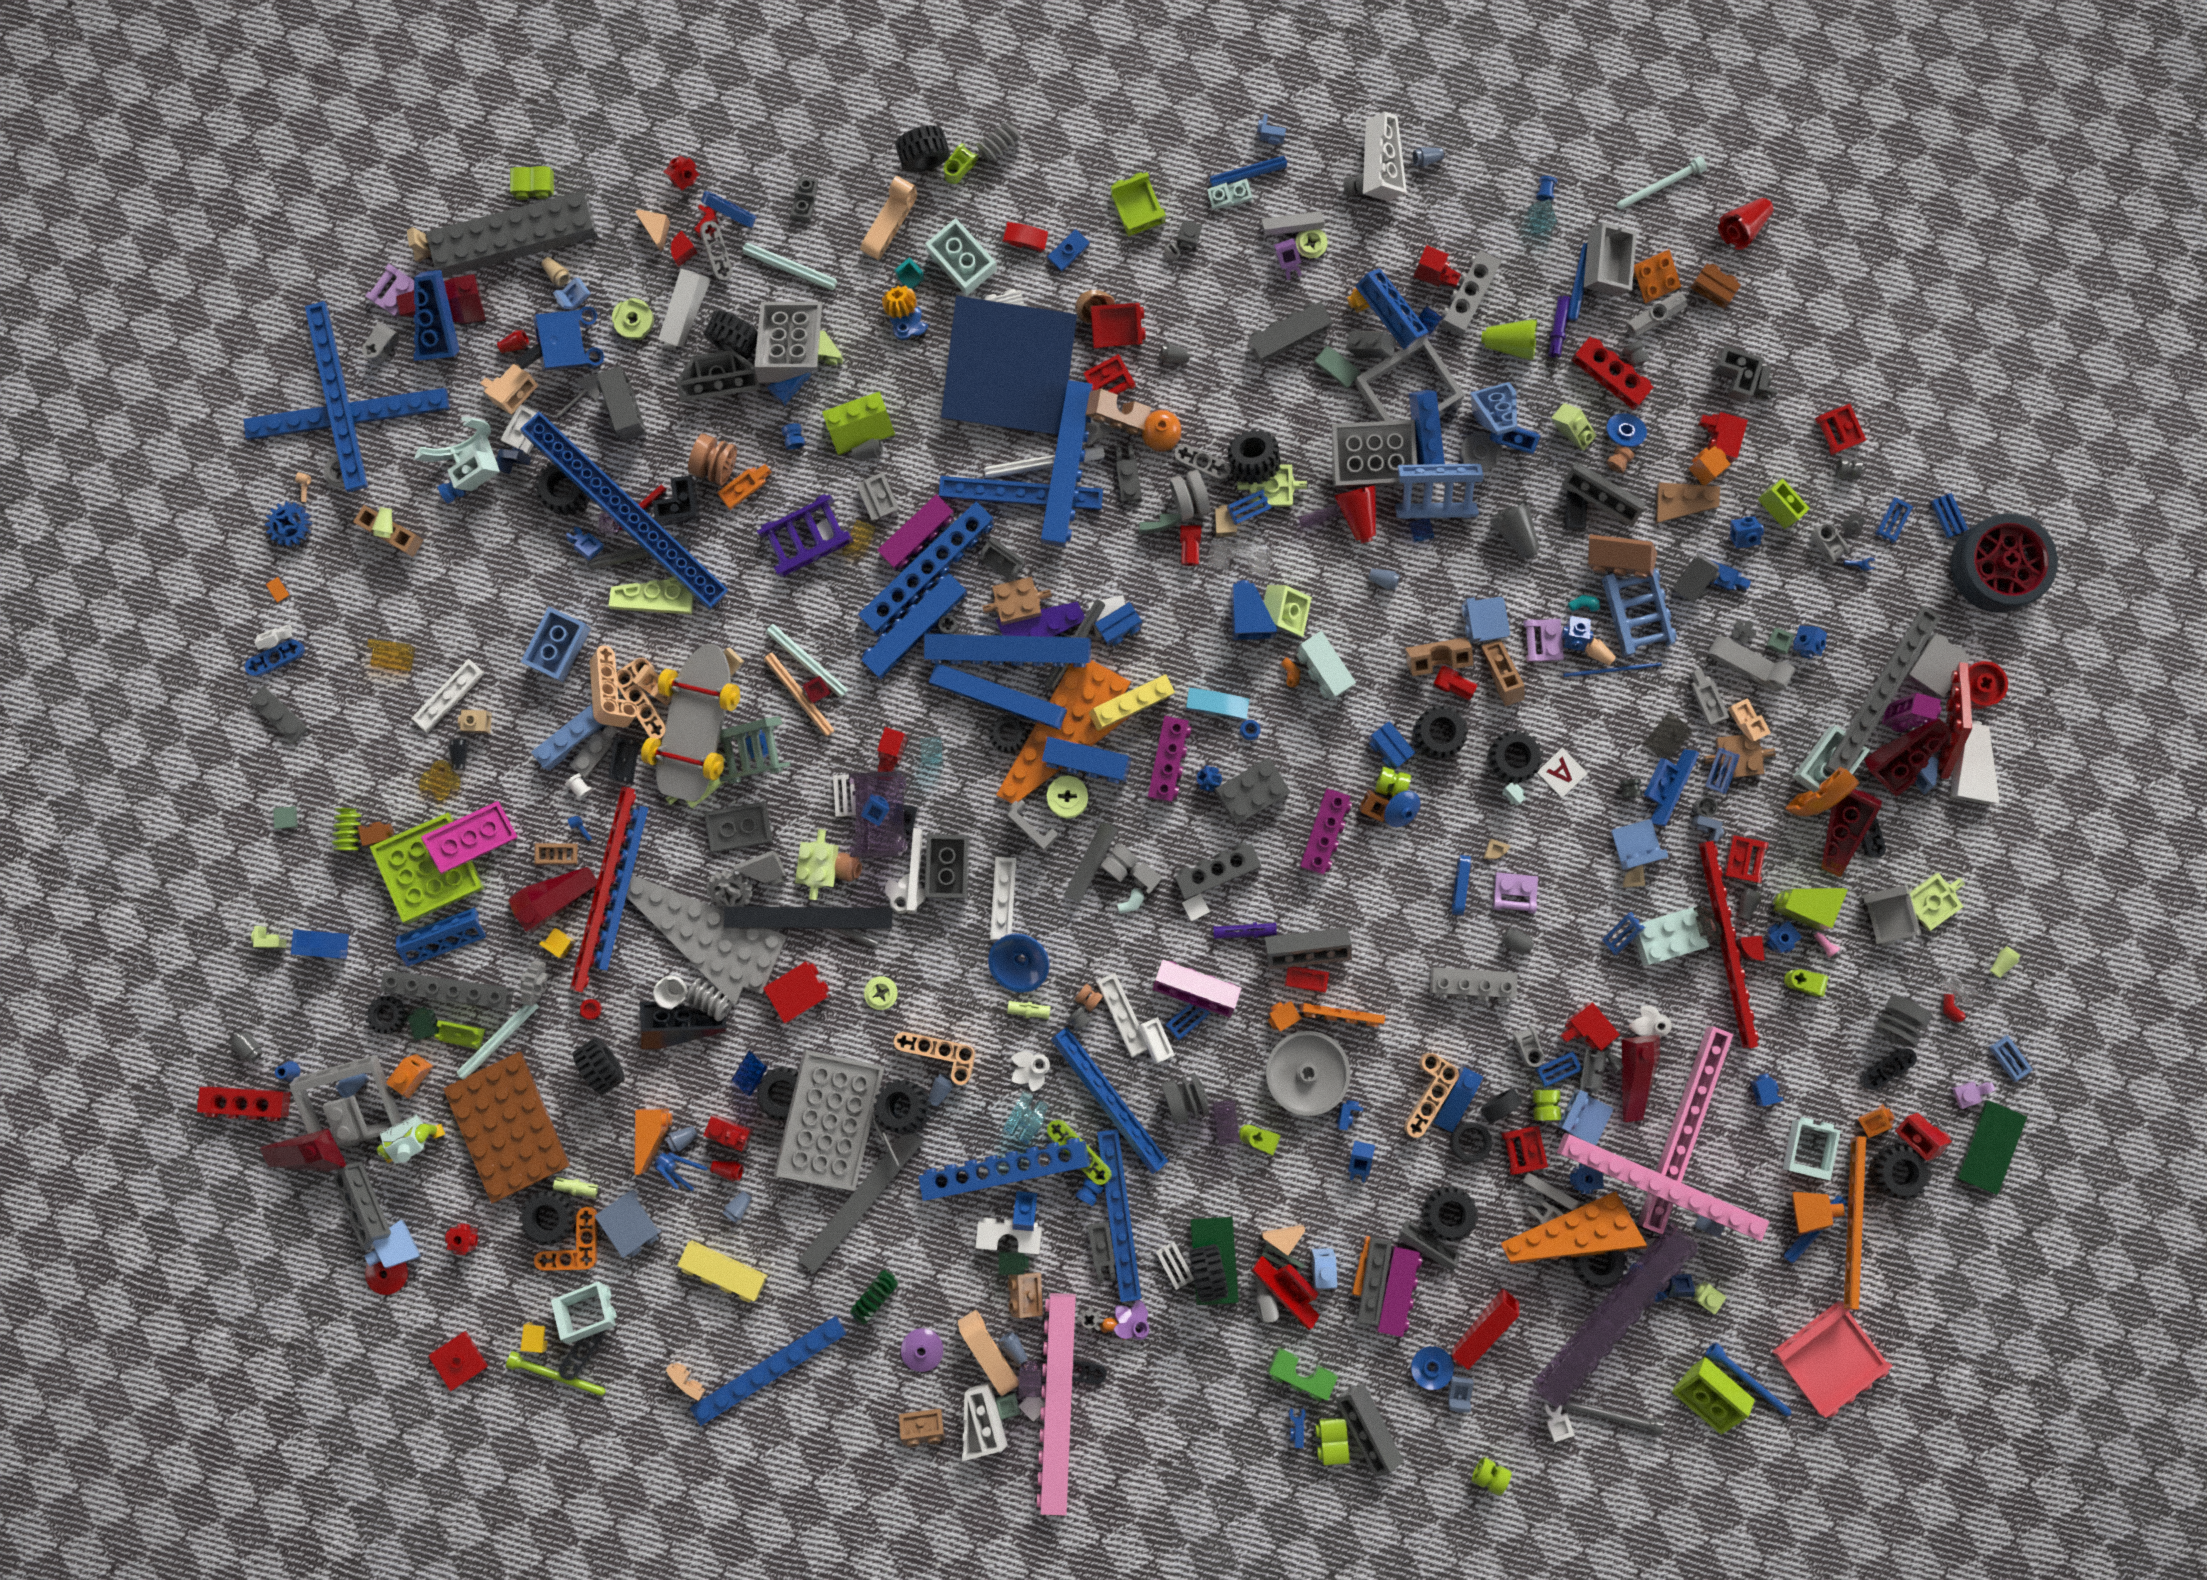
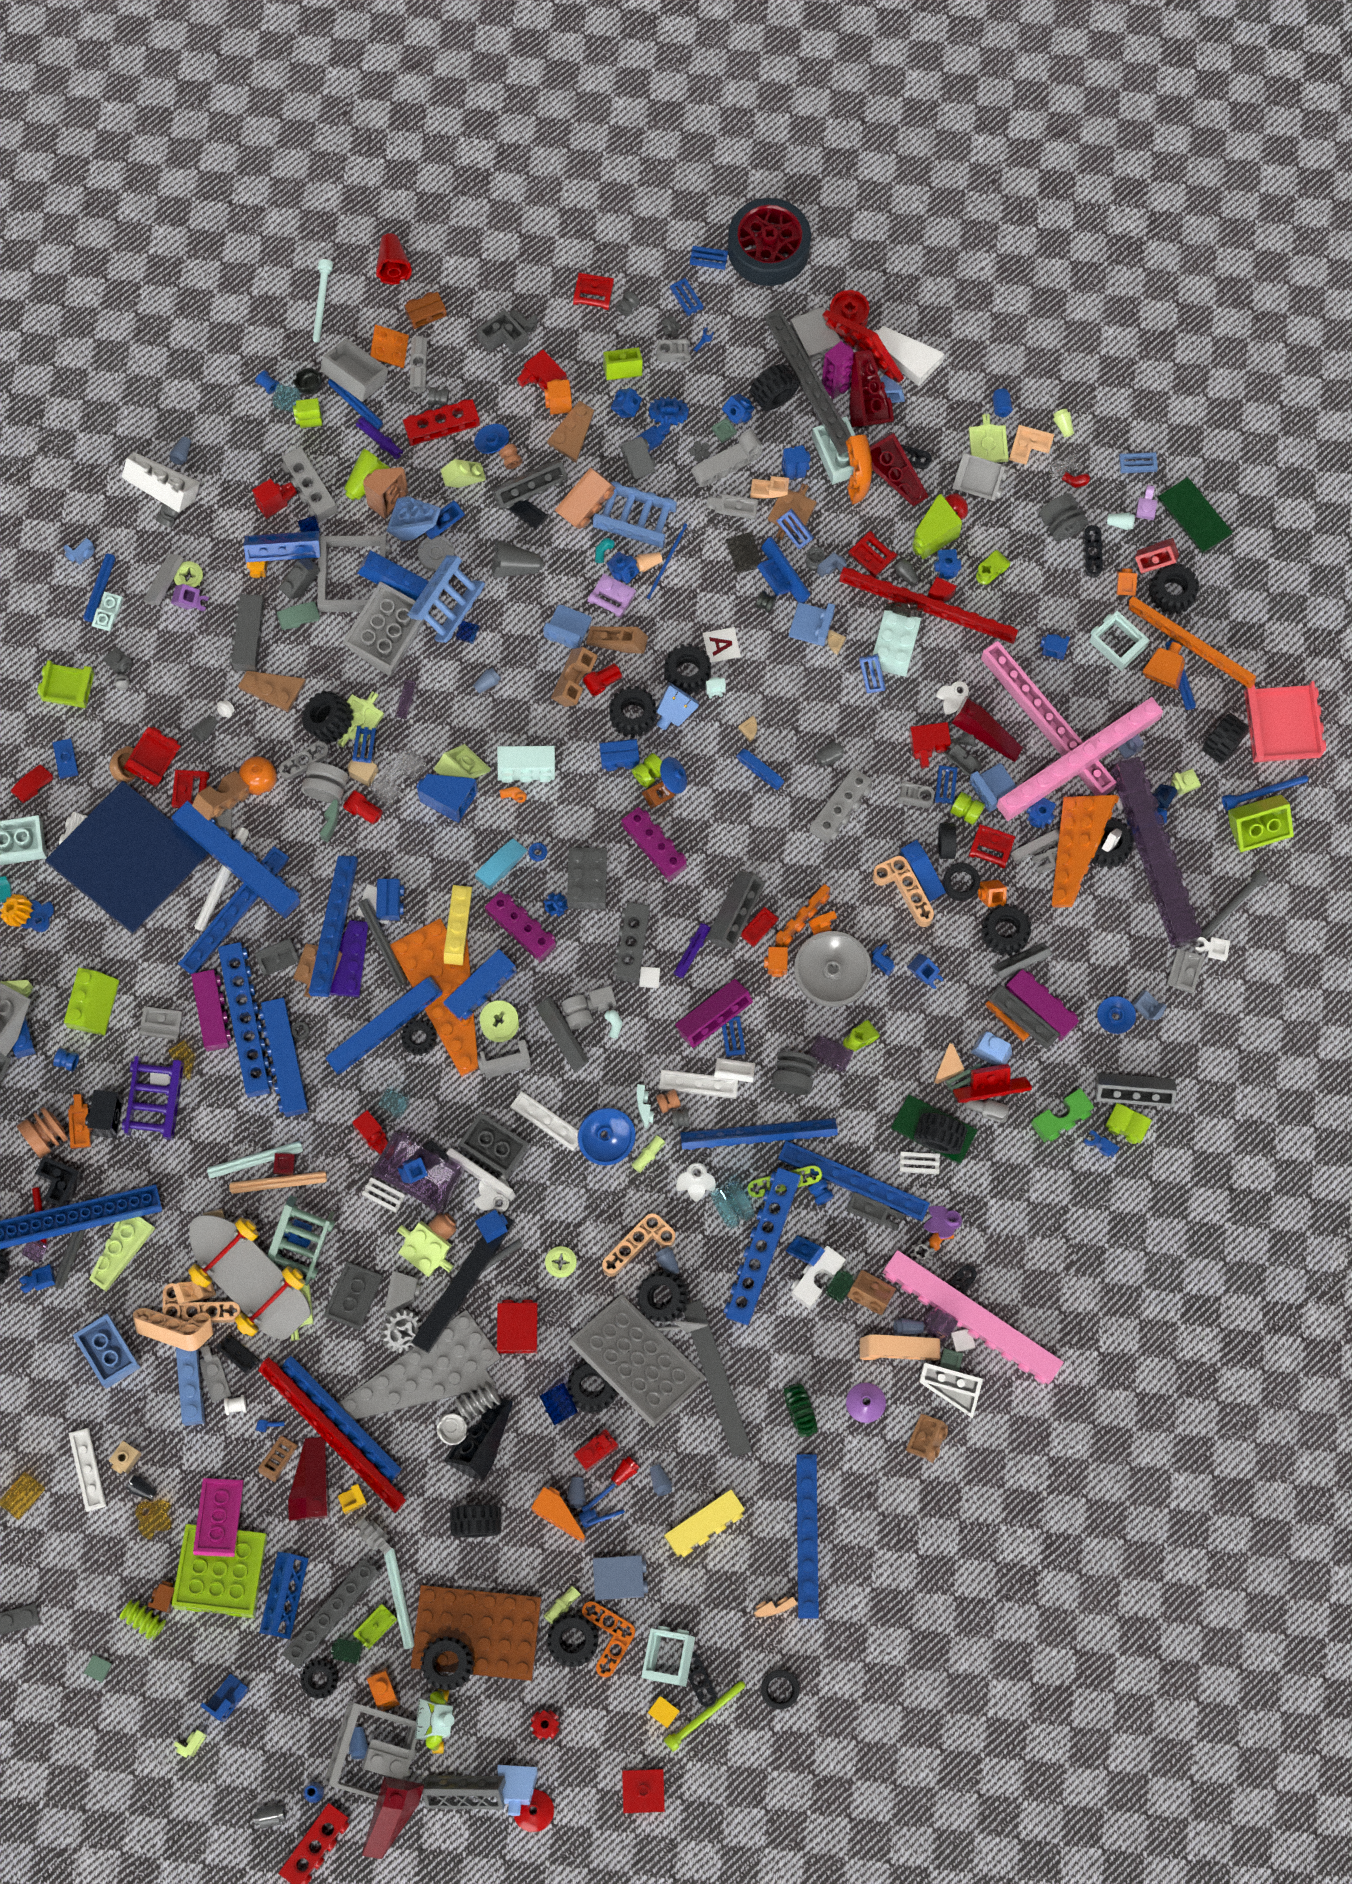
camera: 60 degrees left, 10 degrees down
(443, 1114) = (431, 1656): none -> black tyre
(590, 1009) = (423, 1506): red tile -> none
(601, 1438) = (795, 1689): none -> black tyre
(762, 502) = (104, 1114): none -> black brick
(869, 449) = (117, 1008): dark grey cone -> none
(872, 911) = (492, 1225): none -> blue brick
(1007, 648) = (352, 992): blue brick -> none
(1060, 591) = (333, 926): none -> blue plate
(1064, 984) = (644, 1110): none -> light aqua slope
(1128, 476) = (275, 822): dark grey hinge -> none
(1205, 360) = (225, 708): none -> white plate
(1252, 390) = (272, 688): none -> medium nougat wing
(1346, 1037) = (822, 923): none -> orange bracket
(1359, 512) = (422, 666): red cone -> none
(1470, 768) = (675, 706): none -> medium blue torso
(1477, 1179) = (992, 893): none -> orange brick
(1486, 1329) = (1111, 957): red slope -> none
(1491, 1476) = (1222, 1022): lime wheel -> none
(1508, 364) = (384, 488): none -> nougat slope
(1517, 886) = (787, 729): lavender plate -> none
(1518, 1408) = (1185, 971): none -> light grey plate
(1539, 246) = (307, 413): none -> lime brick
(1572, 224) = (308, 381): none -> pearl dark grey hair
(1600, 1265) = (1112, 840): none -> white tile
(1763, 577) = (668, 411): none -> blue gear
(1776, 1314) = (1225, 738): none -> black tyre
(1789, 729) = (795, 462): none -> blue brick
(1832, 951) = (980, 536): bright pink piece -> none
(1849, 910) = (958, 504): none -> red hair
(1854, 662) = (774, 387): none -> black tyre
(1939, 1080) = (1121, 520): none -> light aqua cone
(1964, 937) = (1029, 439): none -> light nougat plate
(1985, 889) = (1002, 402): none -> blue brick

